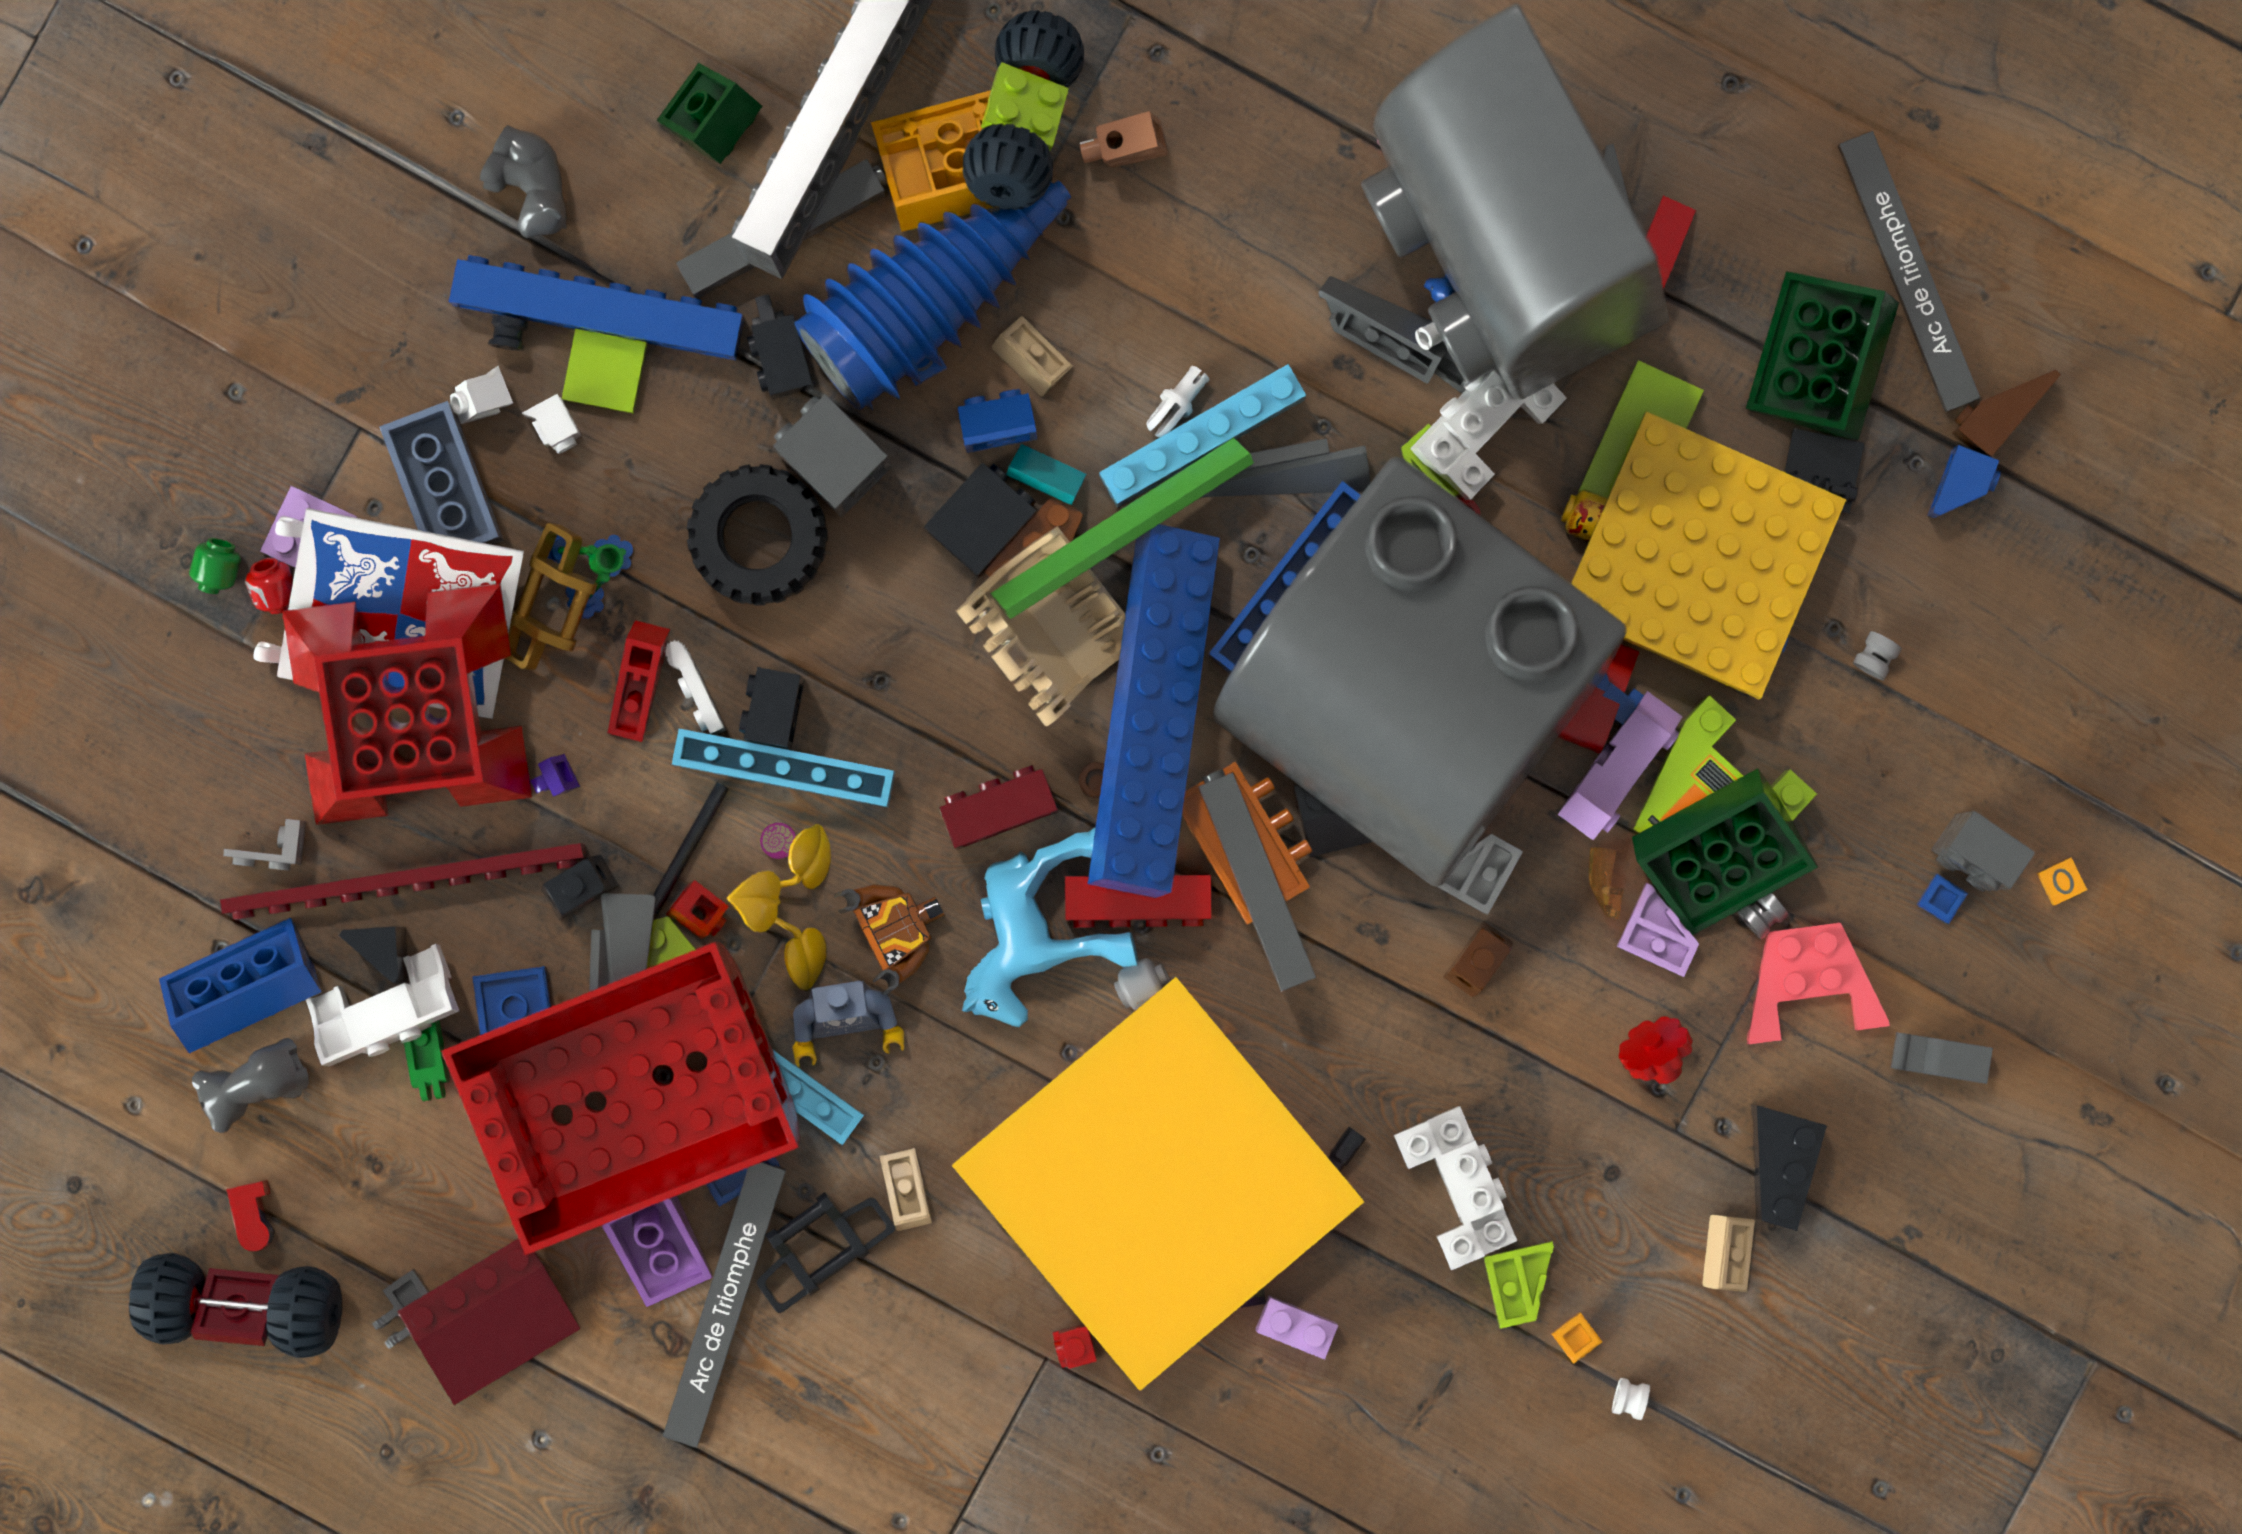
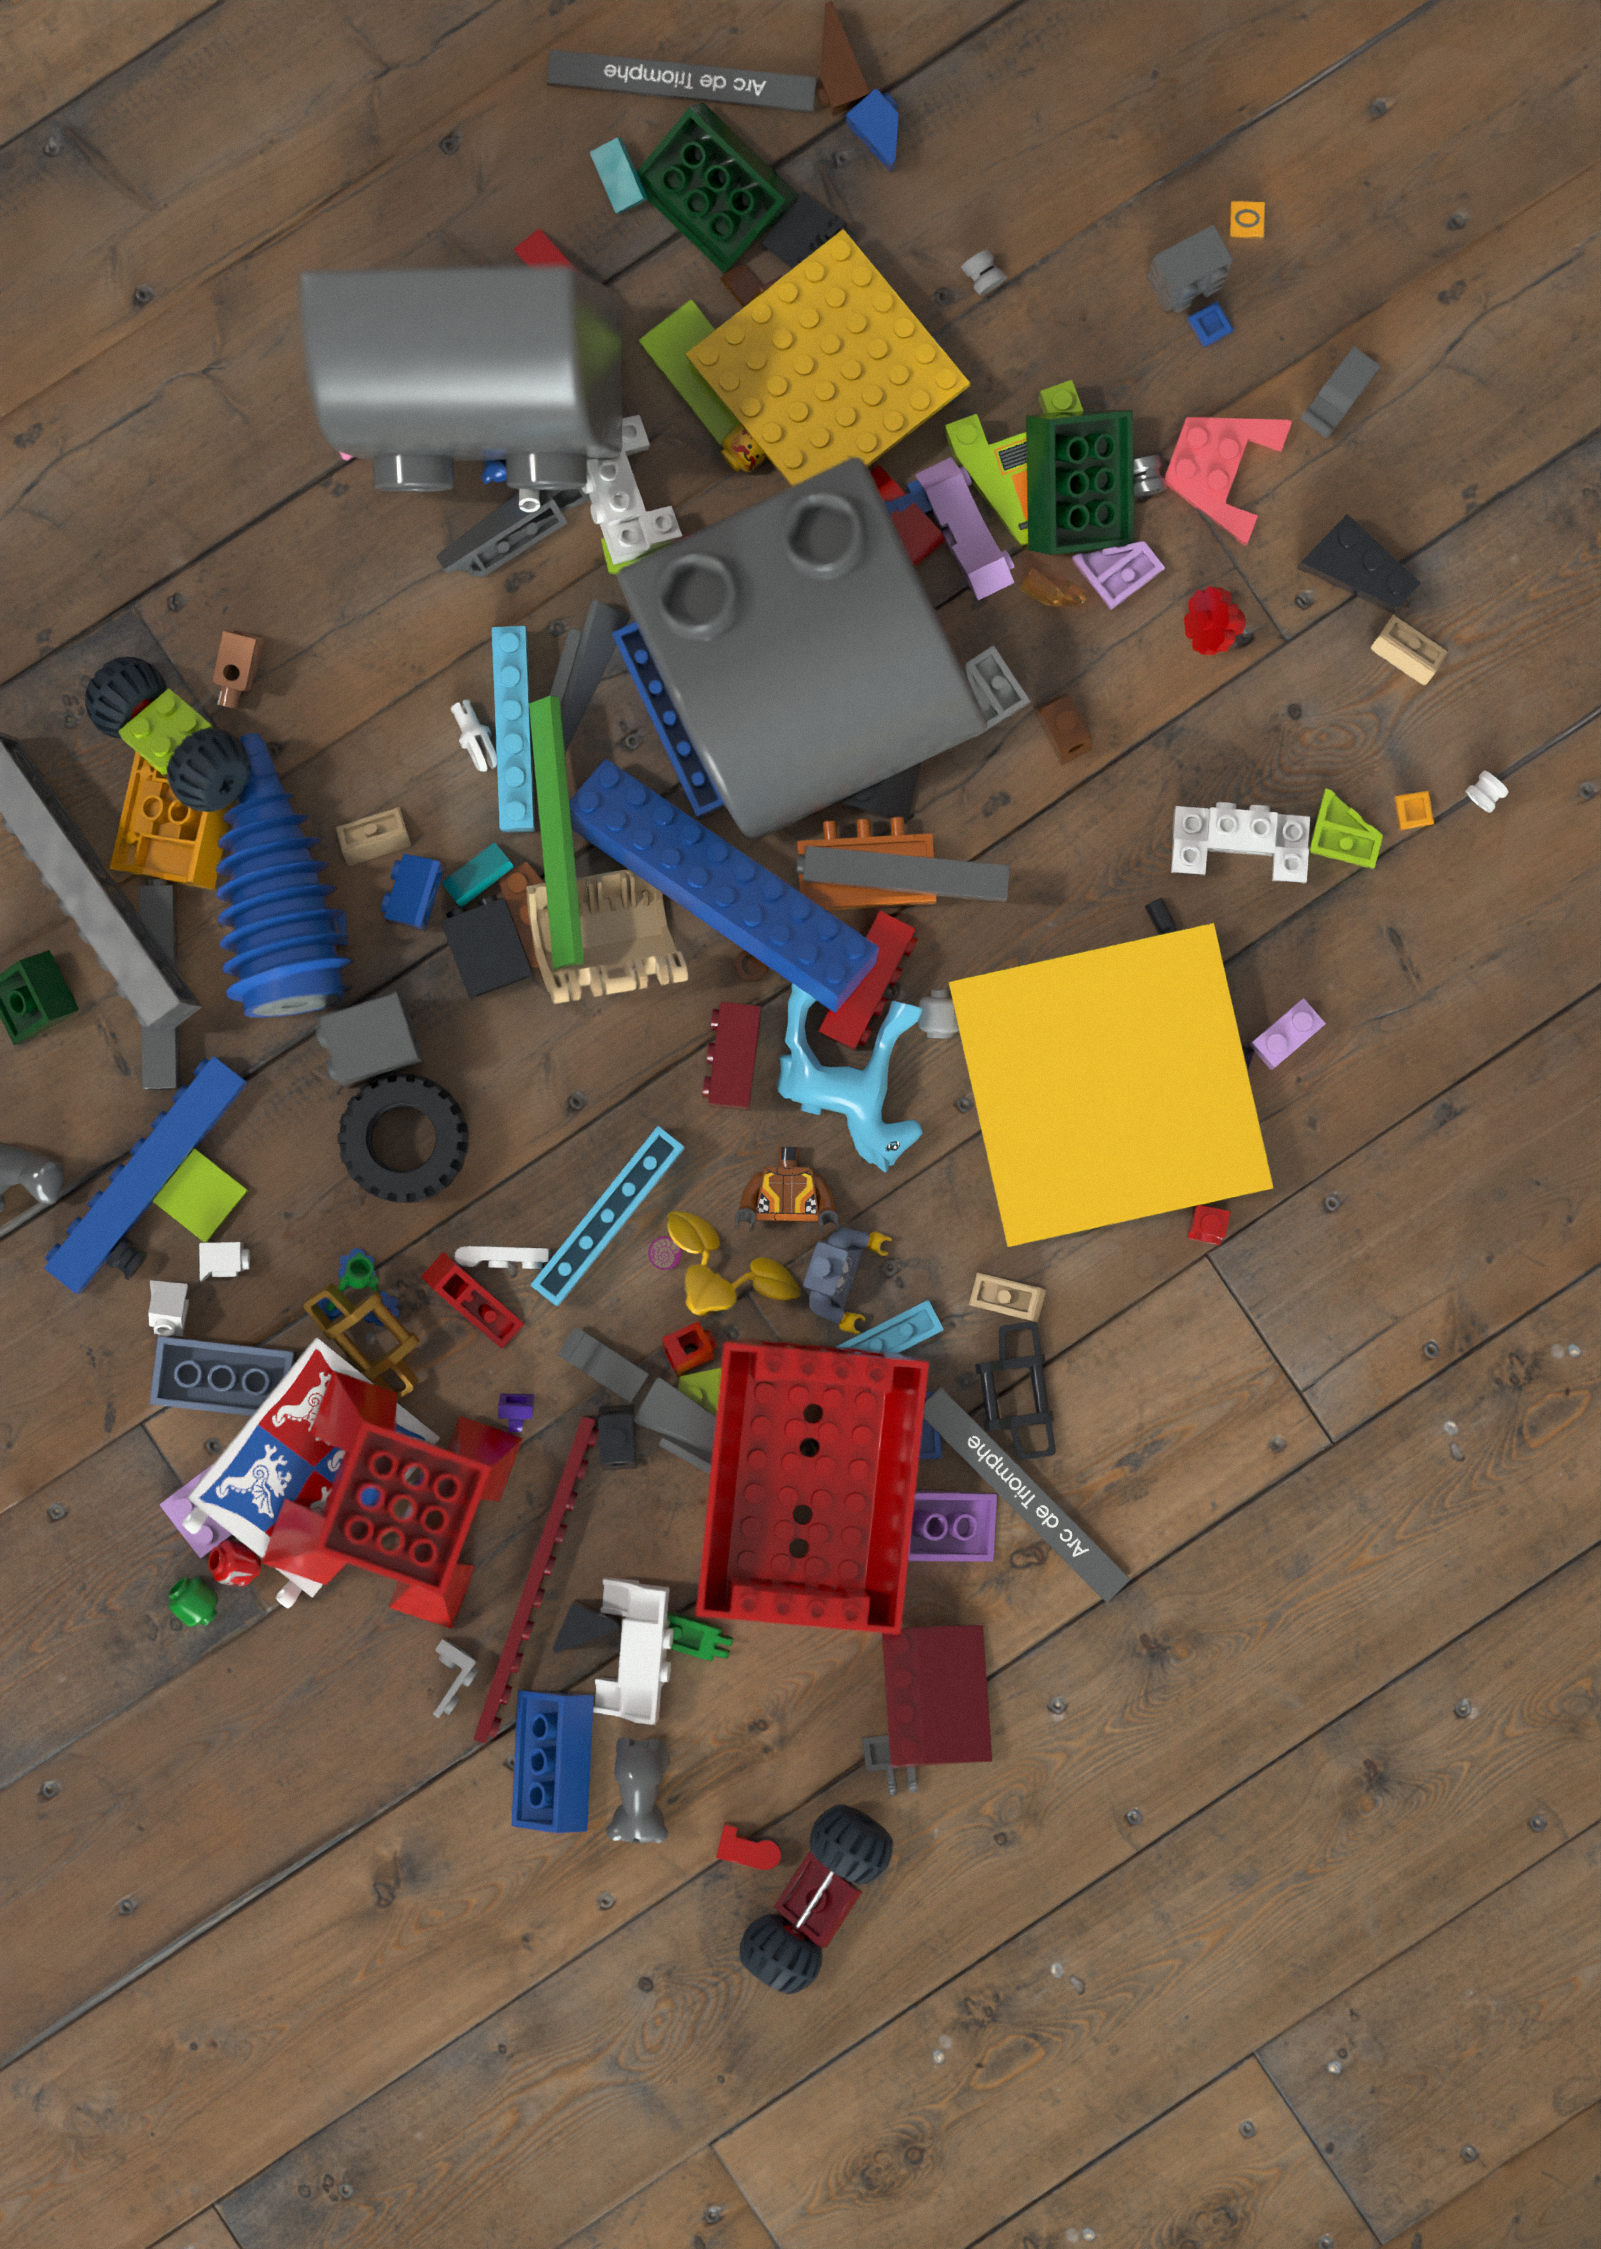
camera: 60 degrees left, 0 degrees up
(510, 996) = (679, 1542): blue tile -> none
(641, 838) = (603, 1364): none -> dark grey piece
(689, 845) = (629, 1327): black bar -> none
(772, 708) = (553, 1198): black brick -> none
(779, 351) = (260, 1041): black hinge -> none
(1744, 433) = (744, 284): none -> reddish brown bracket
(1786, 259) = (618, 175): none -> teal tile

